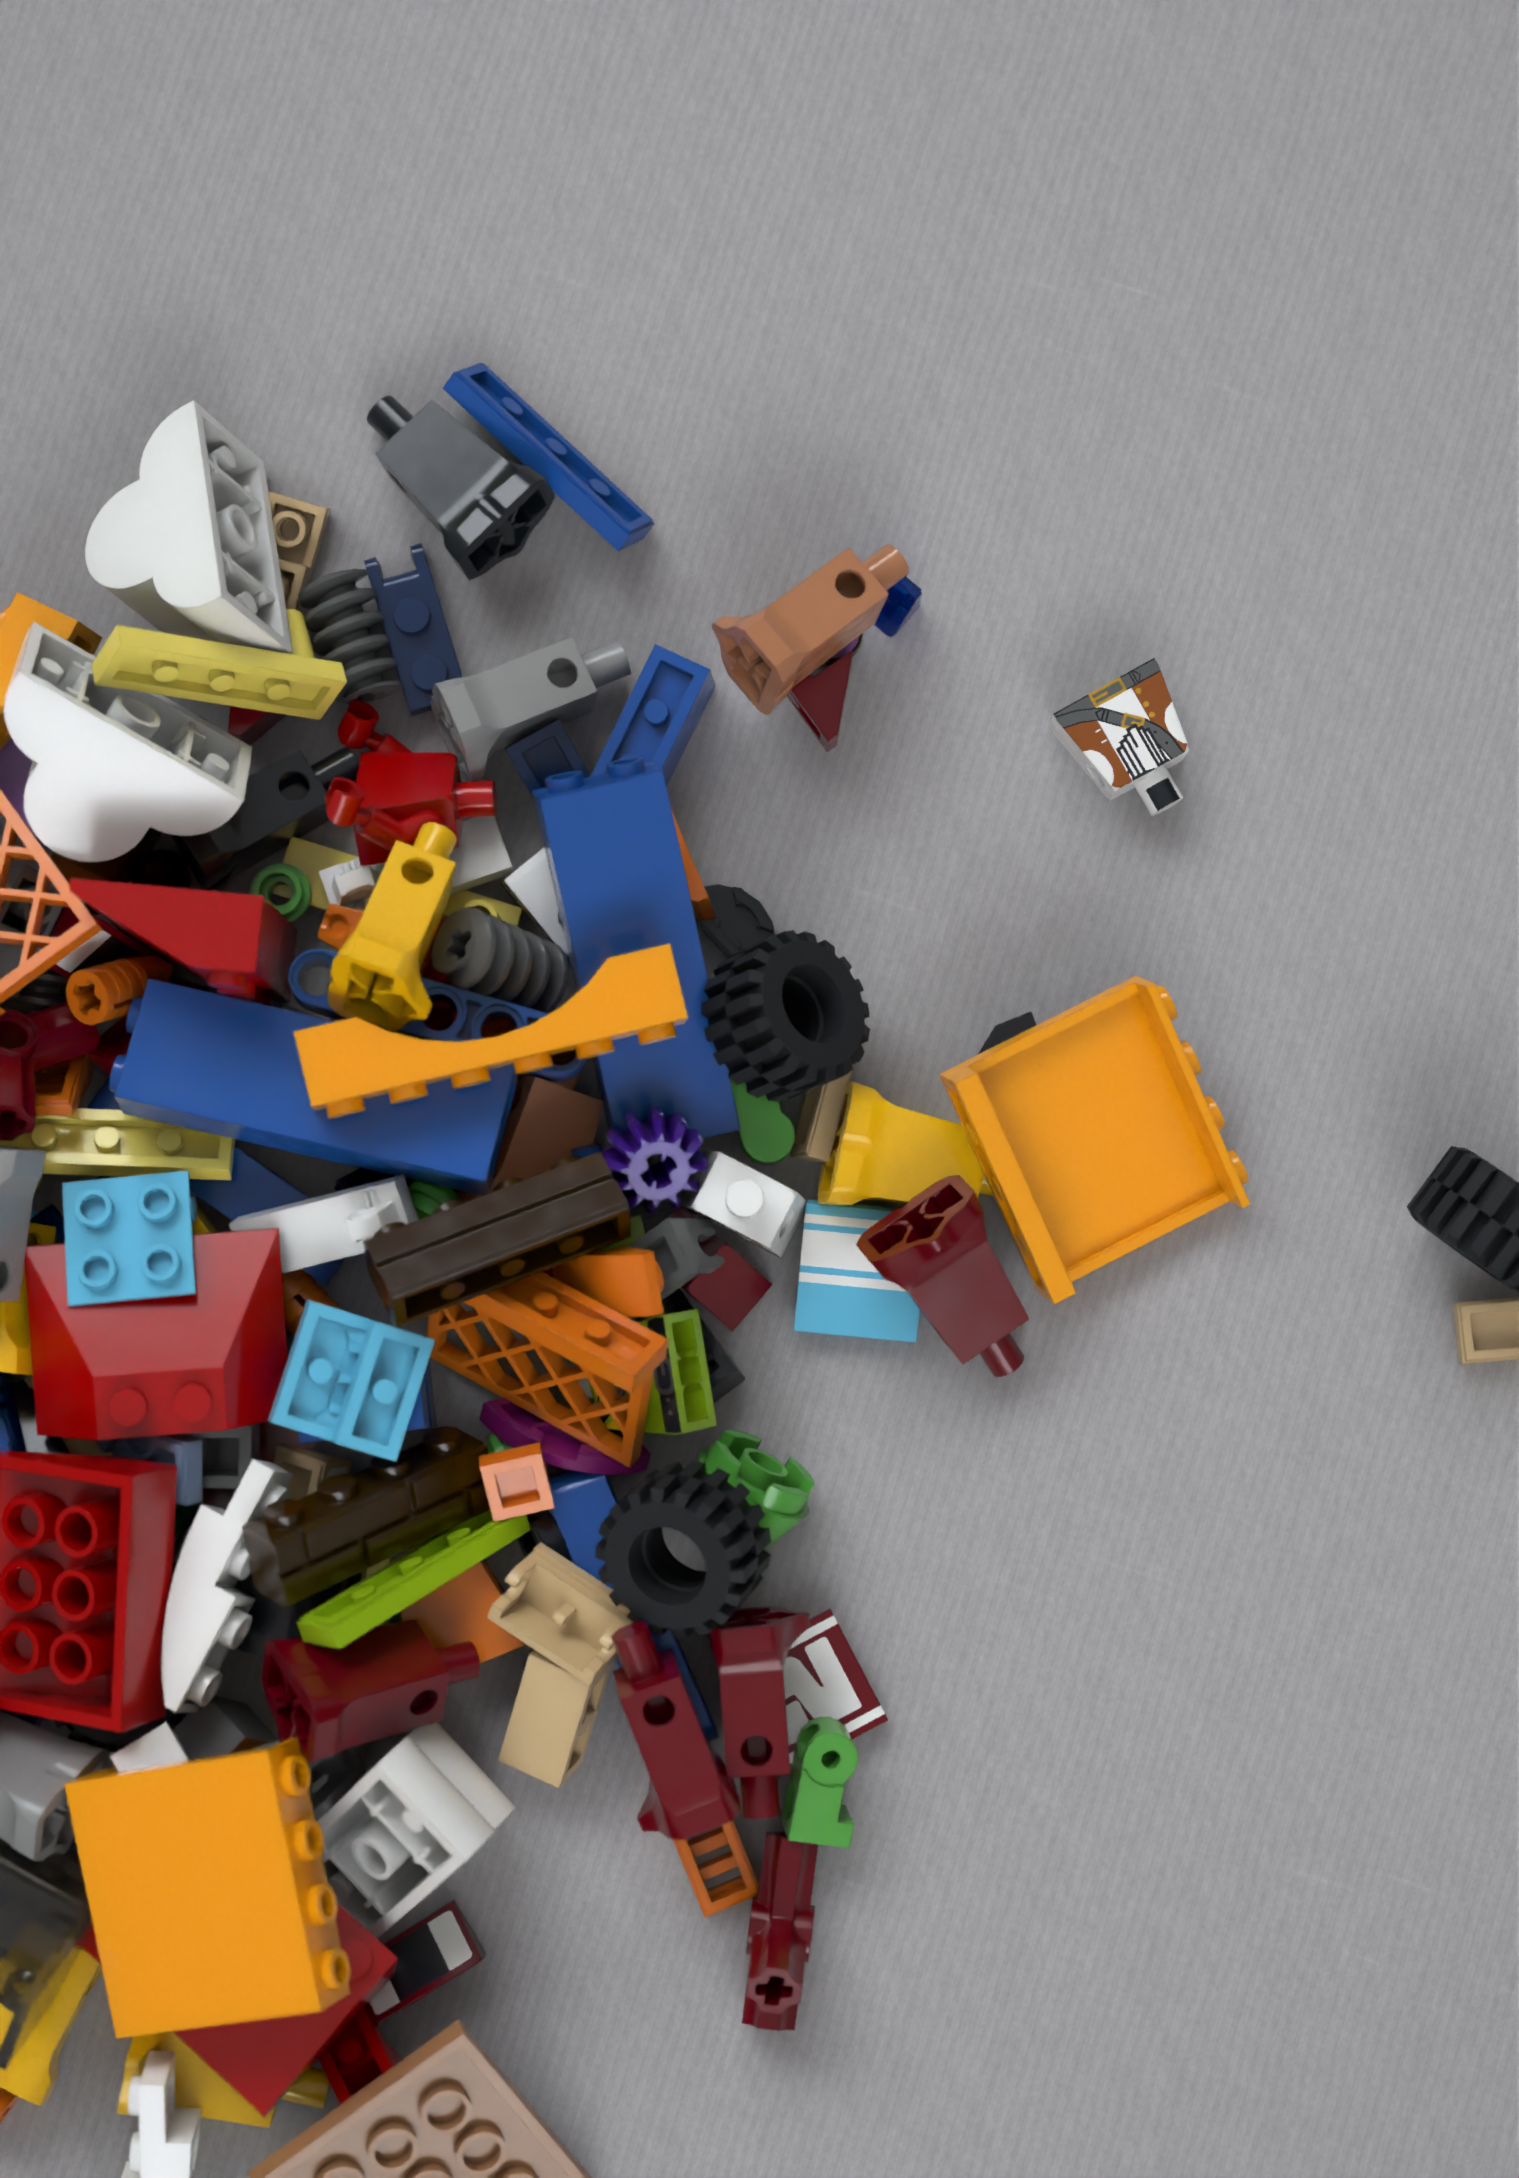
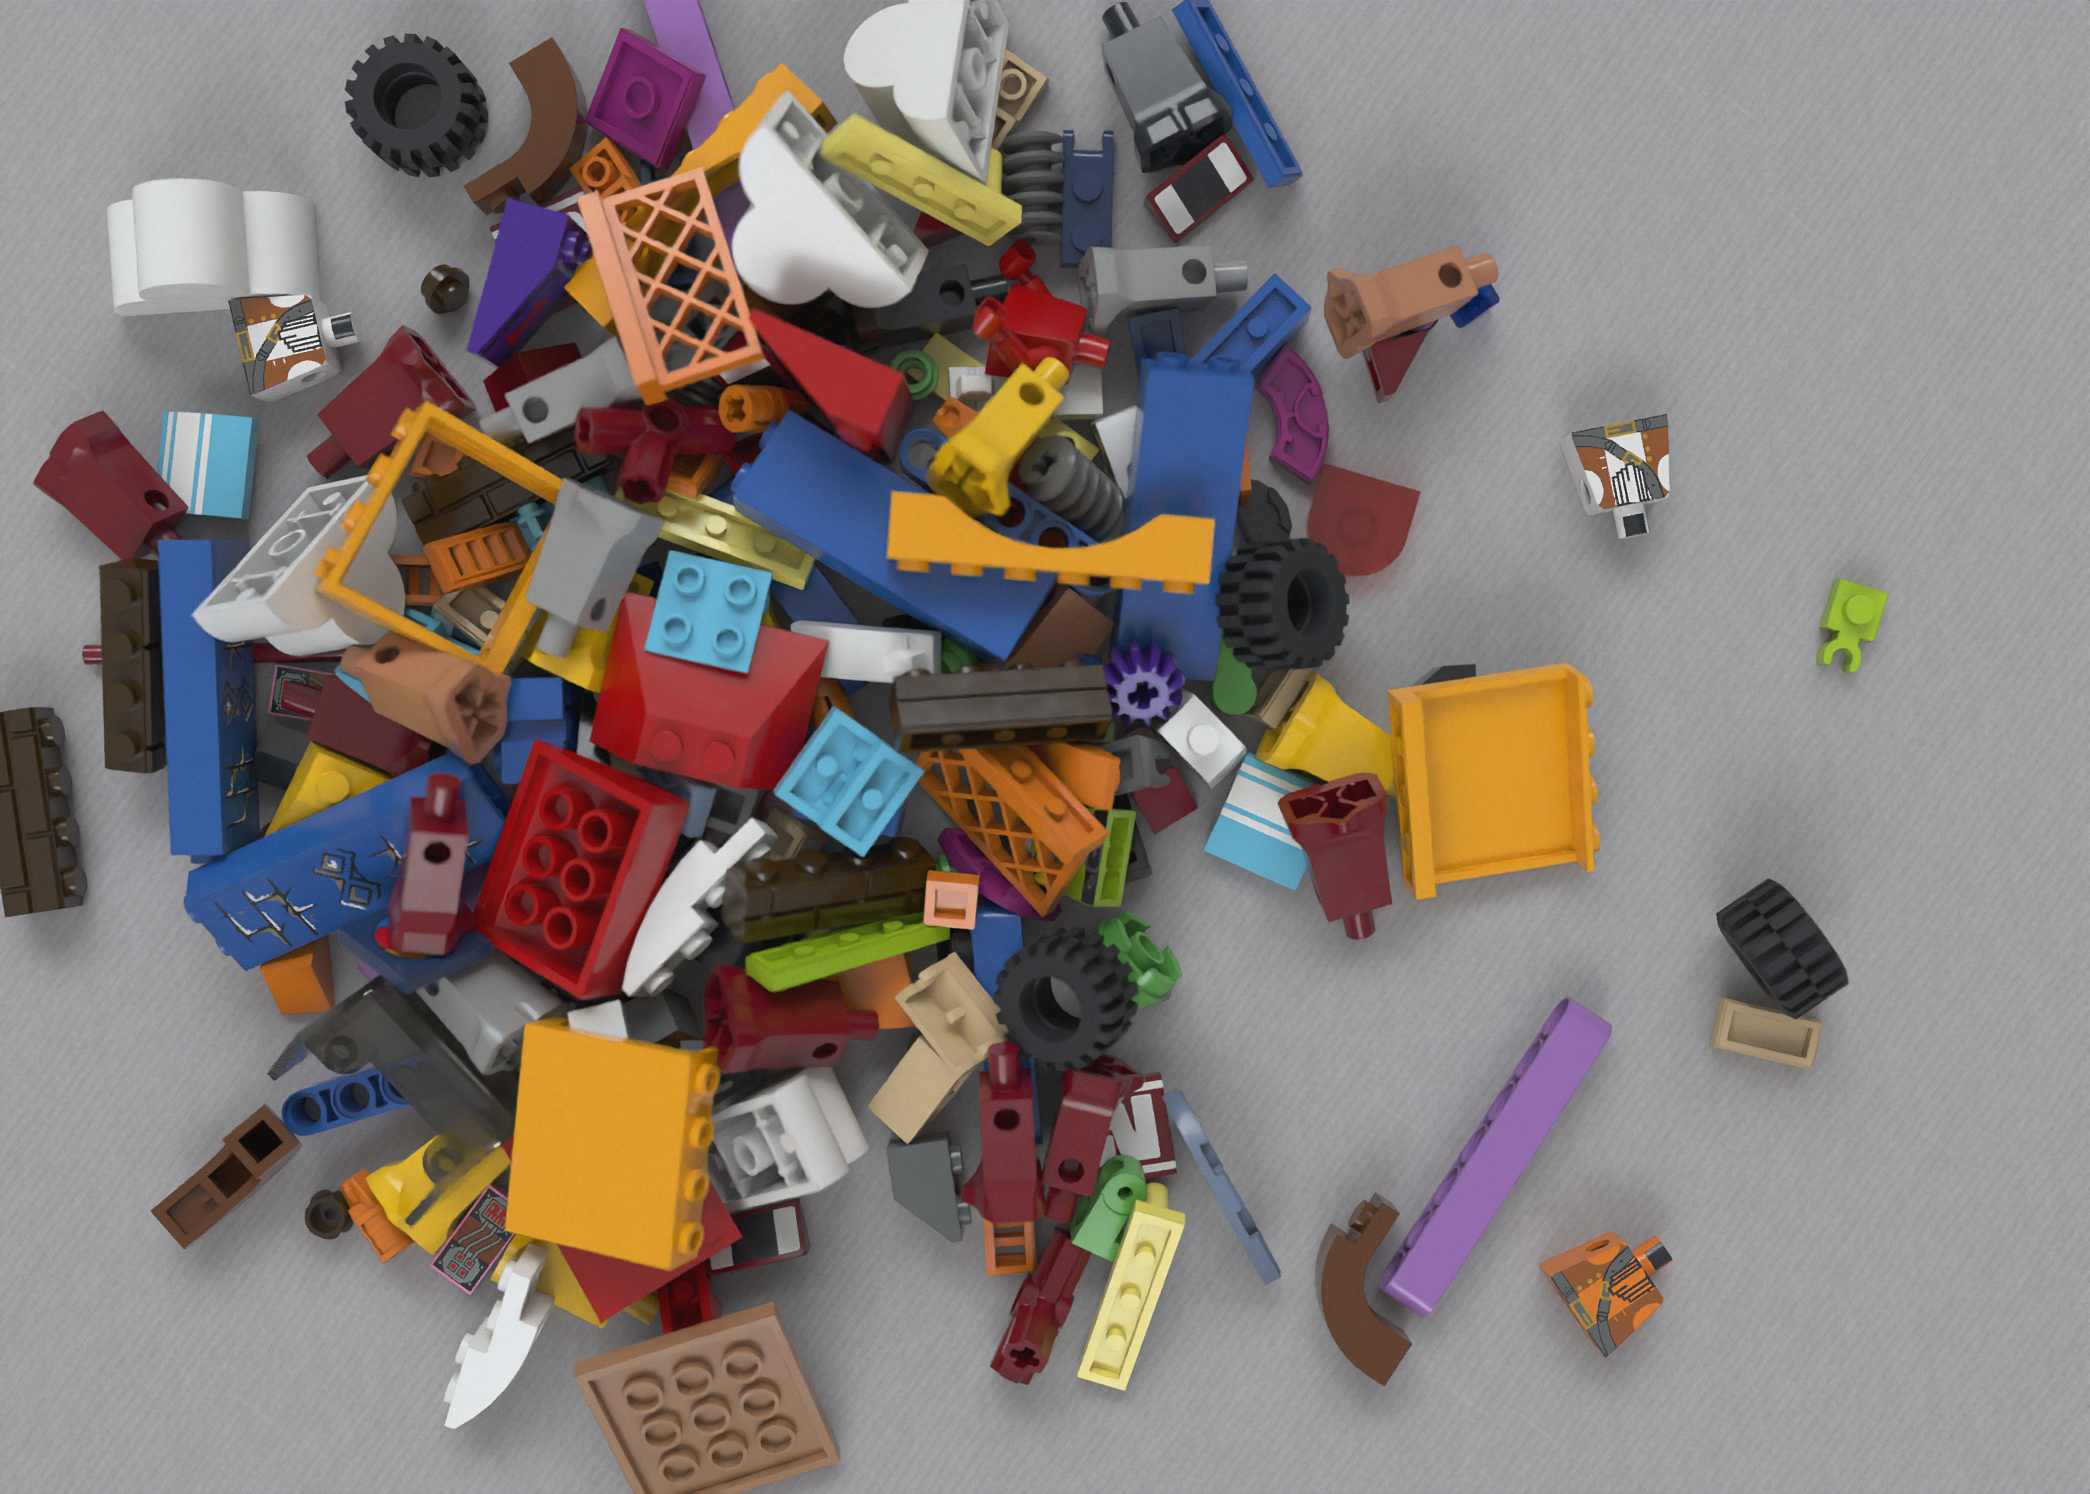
camera: 10 degrees right, 5 degrees up
(88, 2076) = (476, 1241): none -> tile
(540, 577) = (1198, 189): none -> slope
(596, 1827) = (927, 1183): none -> dark grey slope
(739, 792) = (1299, 415): none -> magenta tile
(849, 891) = (1360, 519): none -> clear red tile
(878, 1875) = (1132, 1290): none -> light yellow piece
(944, 1716) = (1222, 1186): none -> sand blue tile
(1157, 1833) = (1341, 1263): none -> reddish brown arch
(1251, 1578) = (1495, 1157): none -> medium lavender beam
(1435, 1684) = (1609, 1286): none -> torso
(1450, 815) = (1852, 615): none -> lime plate

